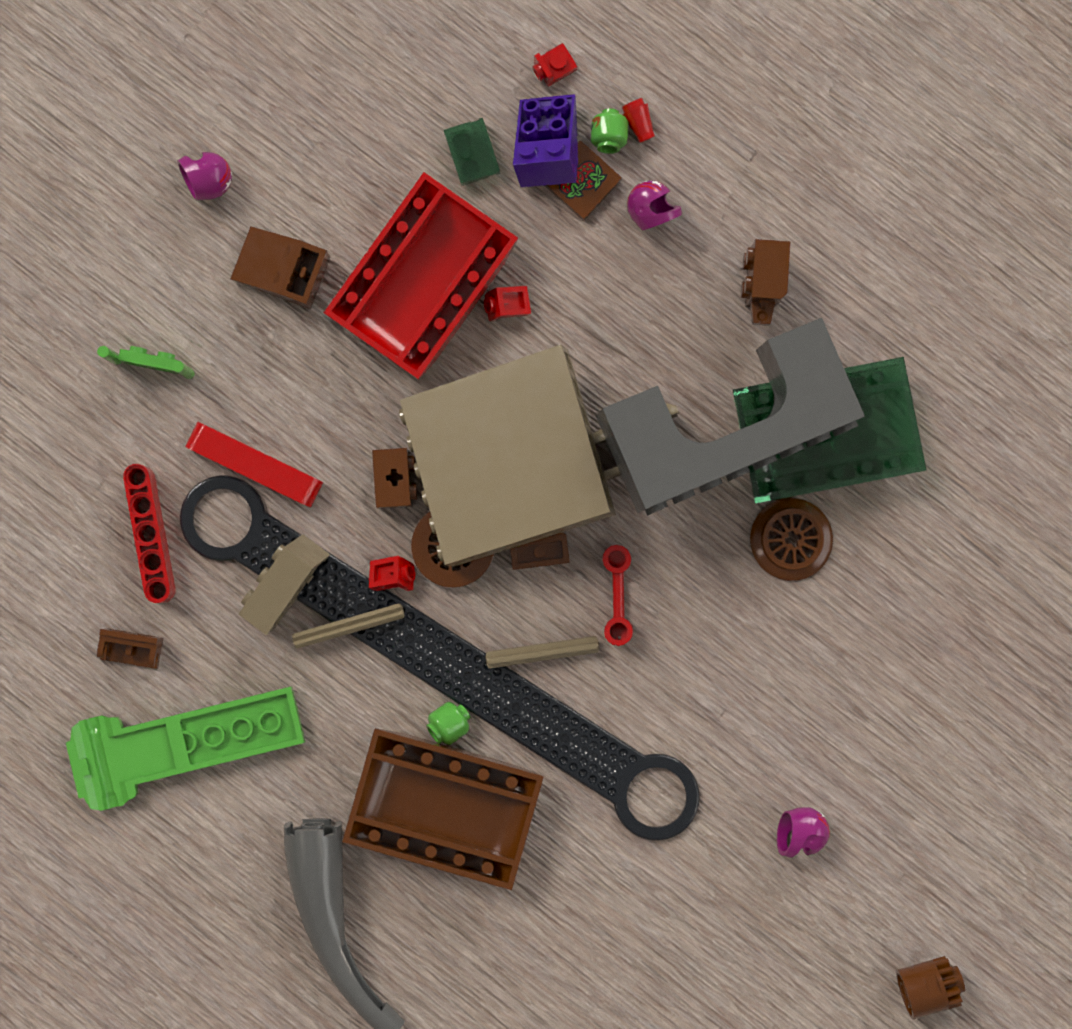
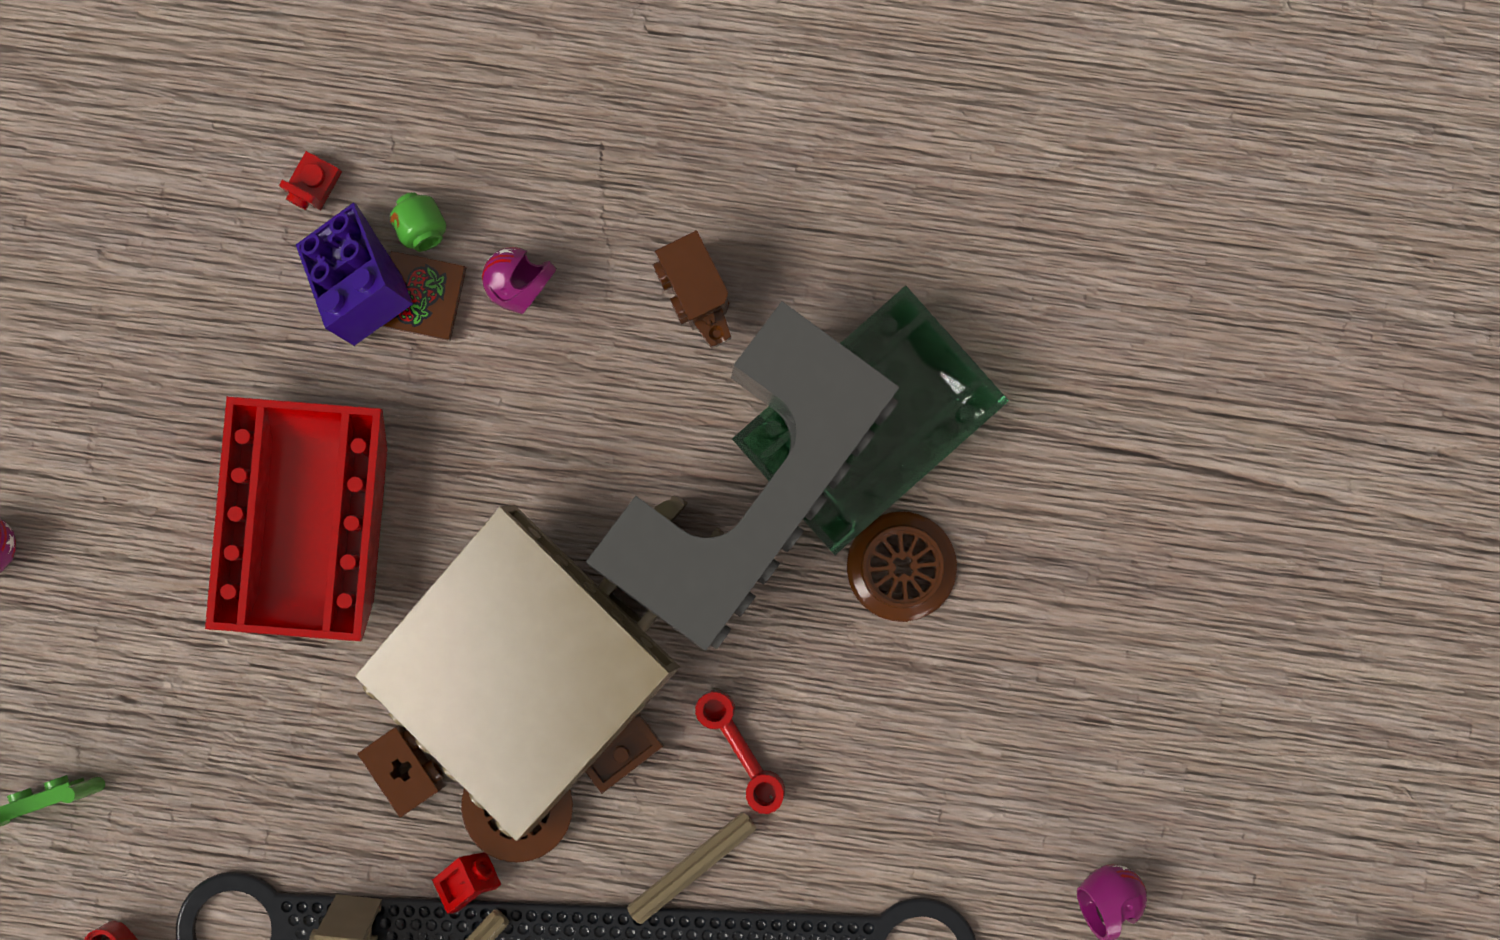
camera: 25 degrees left, 0 degrees up
(254, 464) = (231, 848): red beam -> none
(281, 266) = (131, 600): reddish brown slope -> none
(471, 151) = (273, 337): clear green plate -> none
(507, 302) = (416, 487): red bracket -> none
(639, 119) = (444, 187): red cone -> none

